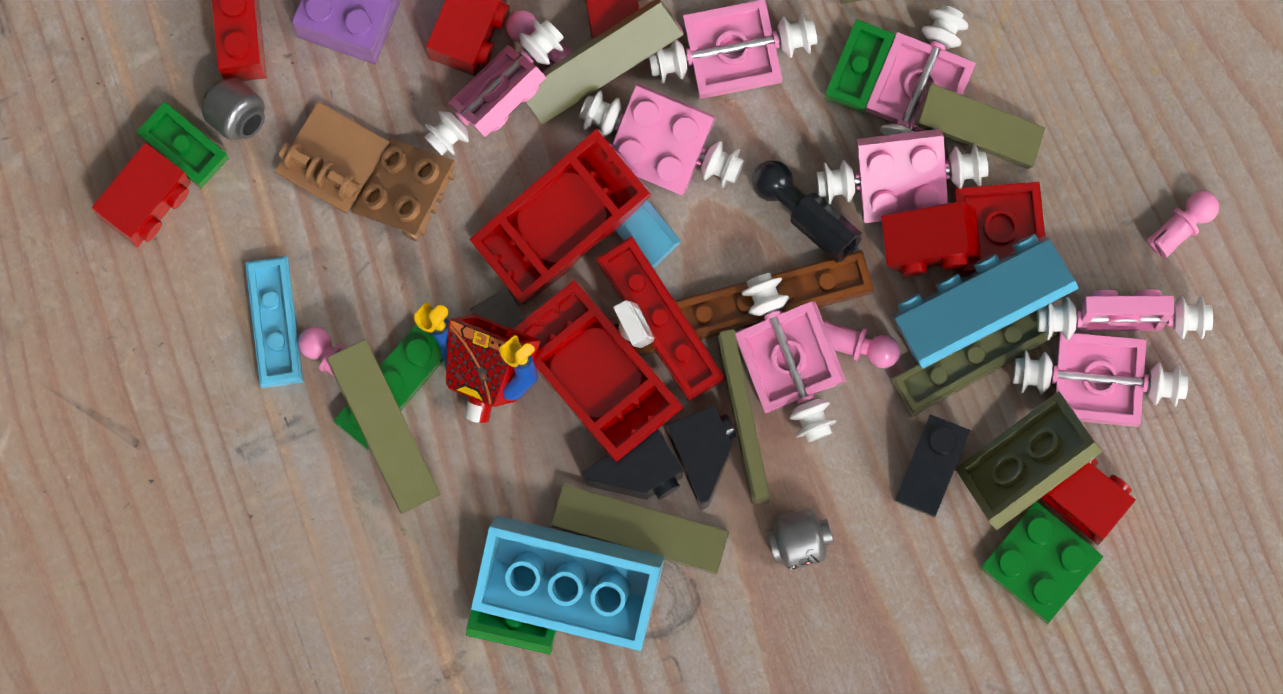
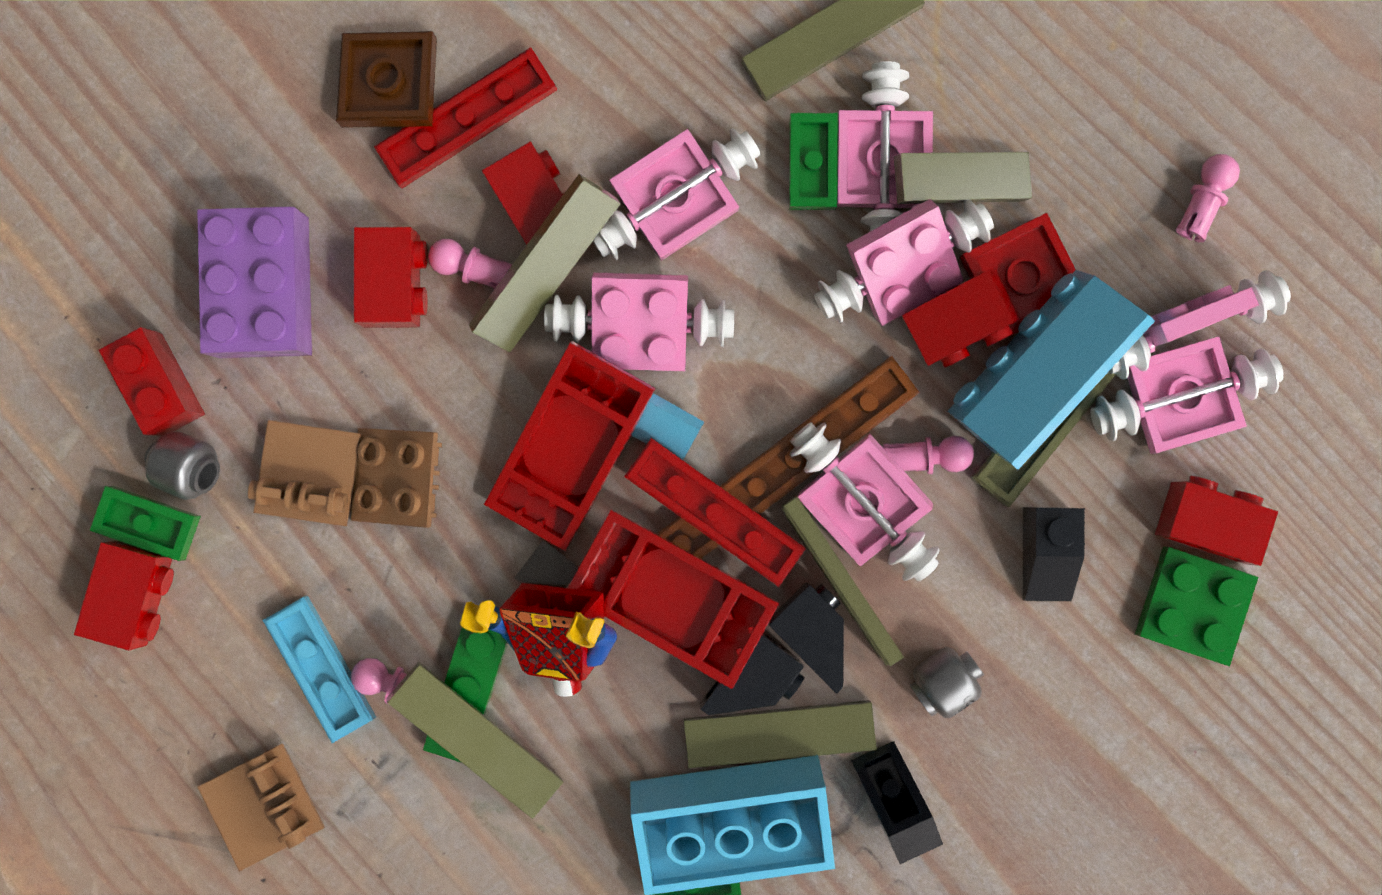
camera: 25 degrees left, 10 degrees up
(177, 415) = (261, 807): none -> medium nougat hinge
(496, 89) = (446, 340): plate -> none
(633, 324) = (693, 536): white tile -> none
(716, 623) = (897, 802): none -> black slope
(808, 212) = (824, 339): black piece -> none
(1028, 460) = (1156, 515): olive plate -> none

